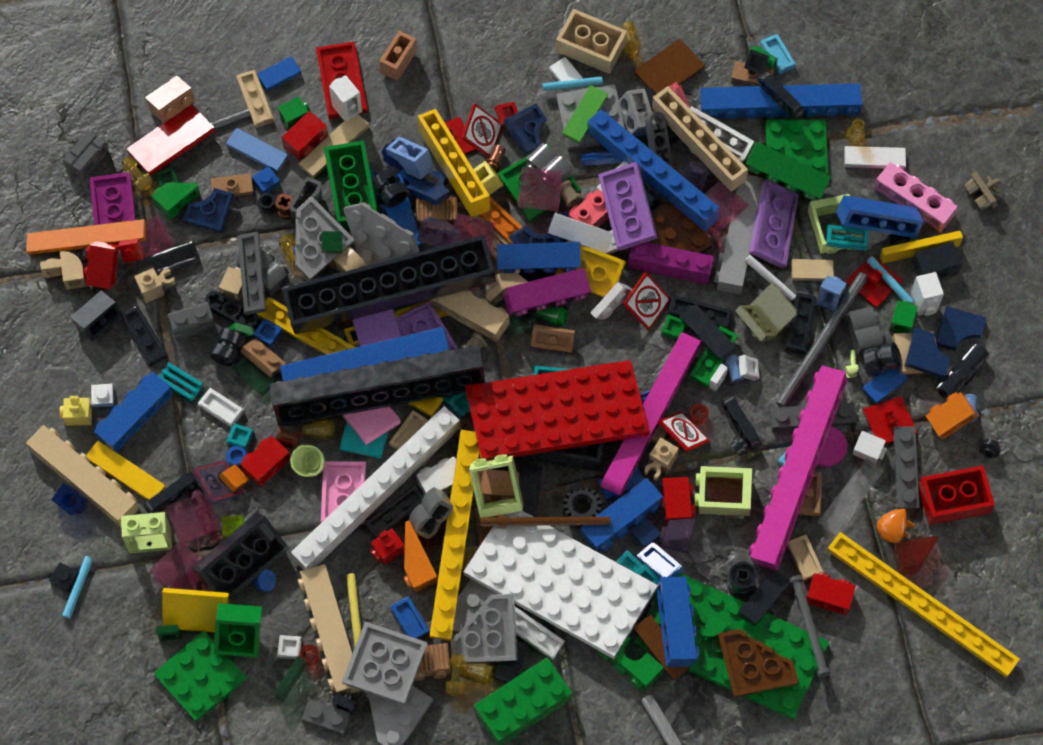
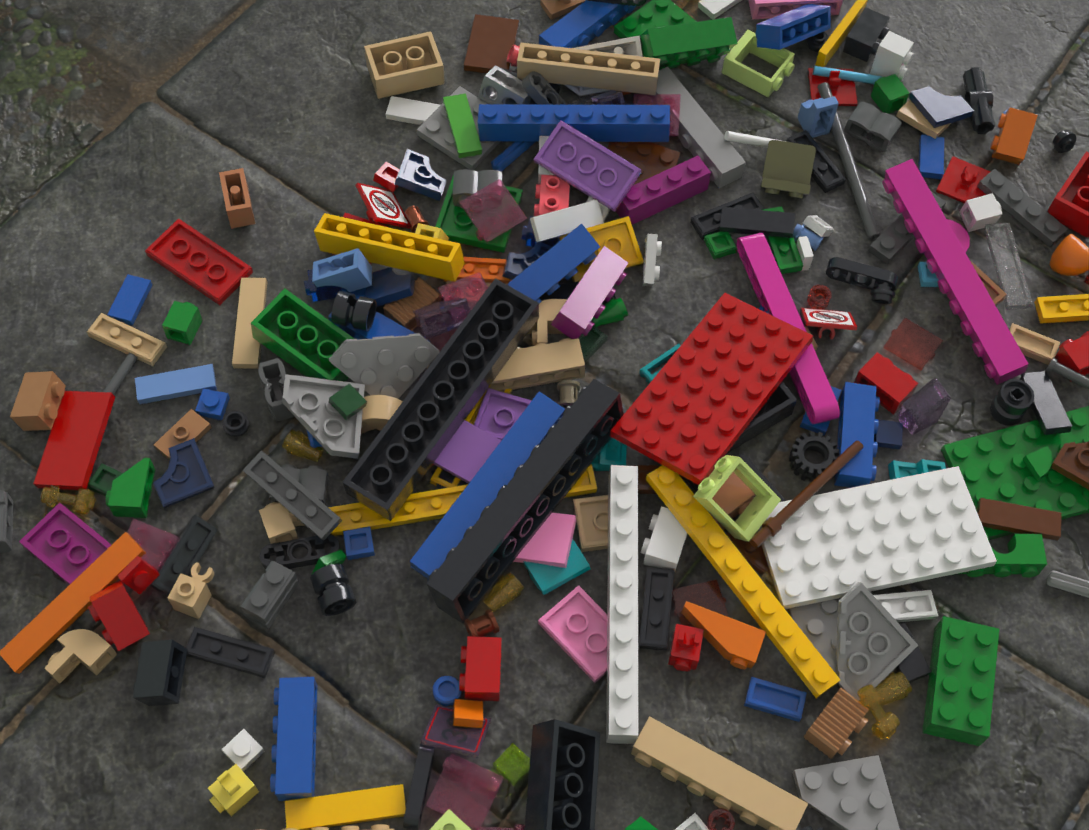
camera: 45 degrees left, 5 degrees down
(166, 372) = (316, 655): teal tile -> none
(221, 407) = (382, 656): white tile -> none
(240, 436) = (429, 667): teal tile -> none
(254, 376) = (384, 595): clear green tile -> none
(262, 357) = (378, 570): medium nougat plate -> none
(265, 581) = (606, 789): blue tile -> none
(281, 201) = (257, 411): copper bush -> none
(304, 136) = (214, 334): red brick -> none
(307, 460) = (526, 631): yellowish green hair -> none
(345, 98) = (226, 266): white brick -> none
(354, 608) = (721, 742): light yellow bar -> none
(384, 663) = (813, 761): light grey plate -> none
(431, 512) = (698, 576): dark grey brick -> none
(552, 338) = (631, 332): medium nougat plate -> none
(569, 194) = (522, 198): dark tan bush -> none
(572, 83) = (422, 111): medium azure bar -> none
(632, 47) = (443, 45): clear yellow bar -> none
(646, 301) = (679, 237): piece -> none
(659, 561) = (931, 447): tile -> none
(661, 458) = (835, 356): tan brick -> none
(676, 622) = (1013, 483): blue brick -> none
(722, 508) = (930, 324): yellowish green window -> none
(774, 223) = (712, 97): medium lavender tile -> none
(811, 269) = (777, 113): tan tile -> none
(851, 370) = (892, 161): yellowish green hand -> none
(863, 241) = (788, 64): teal tile -> none
(882, 358) = (915, 133): black wheel -> none
(958, 326) = (934, 70): dark blue tile -> none

